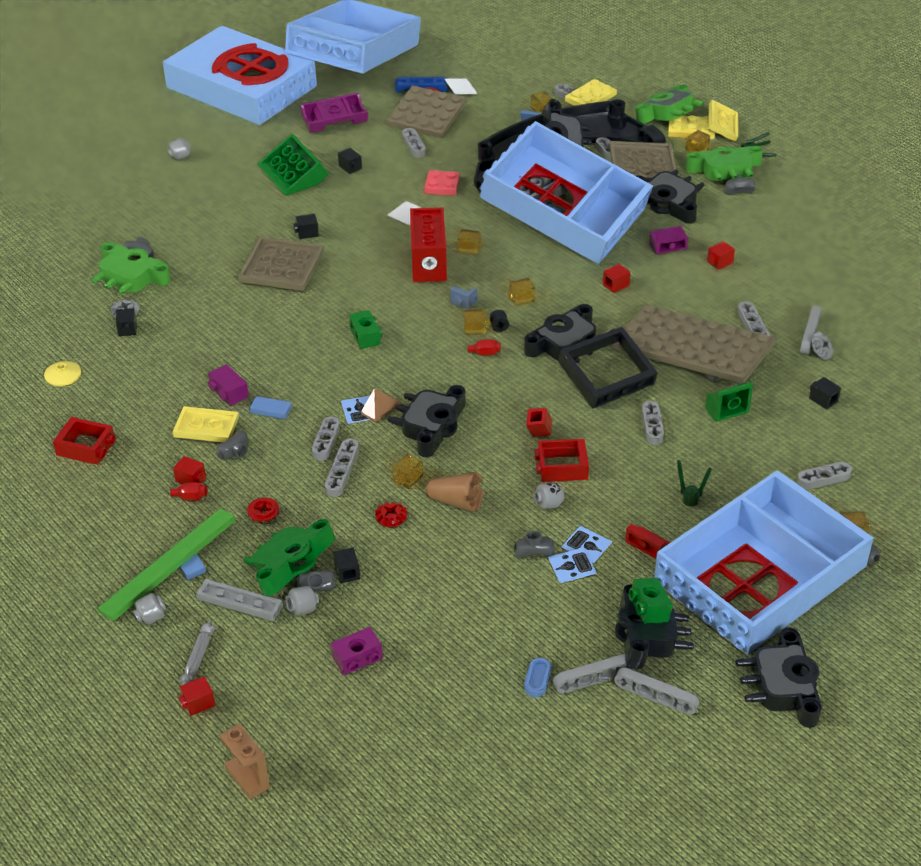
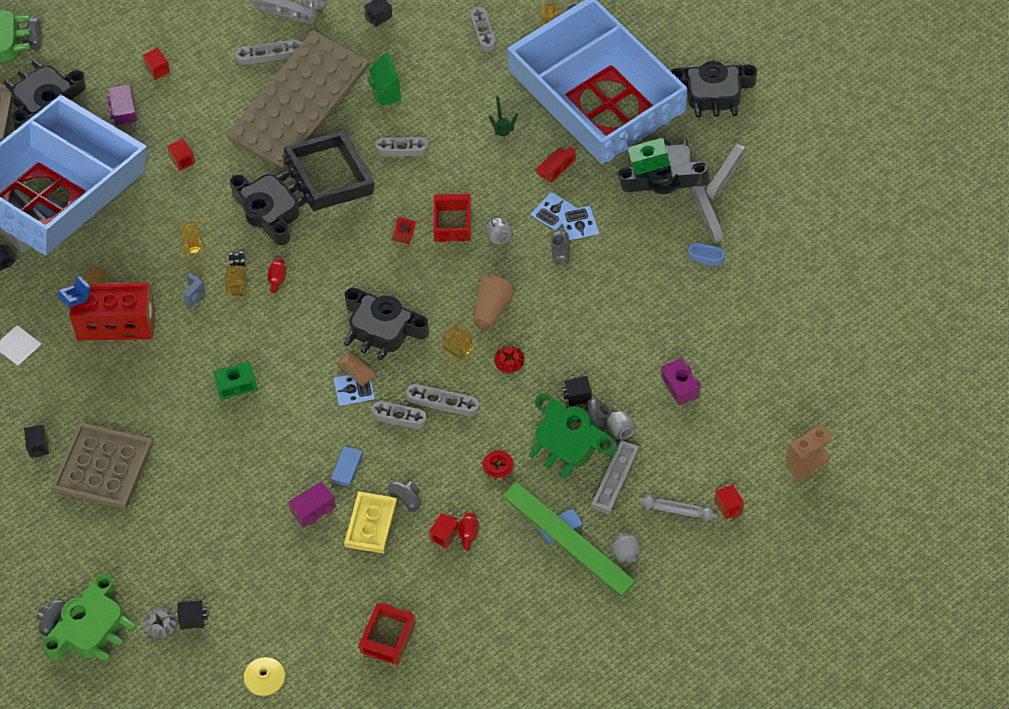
camera: 85 degrees left, 15 degrees up
(426, 203) = (75, 294): none -> blue bracket

